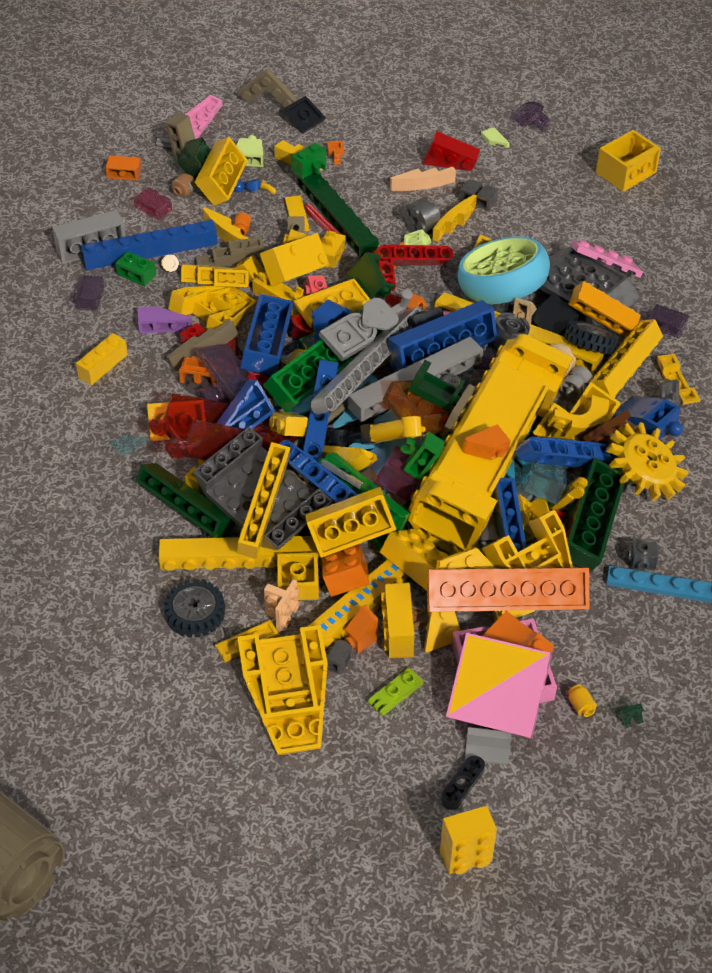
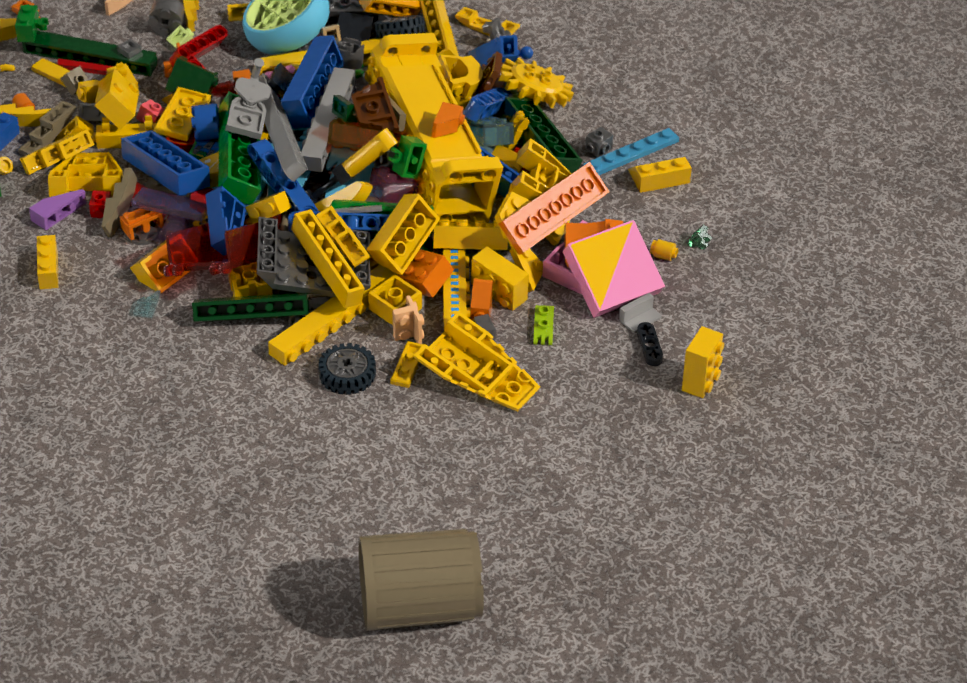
camera: 45 degrees left, 5 degrees down
(298, 490) = (343, 236): none -> yellow slope
(360, 224) = (129, 48): none -> flat silver tile
(438, 392) = (374, 107): none -> reddish brown wing
(667, 625) = (661, 174): none -> yellow slope

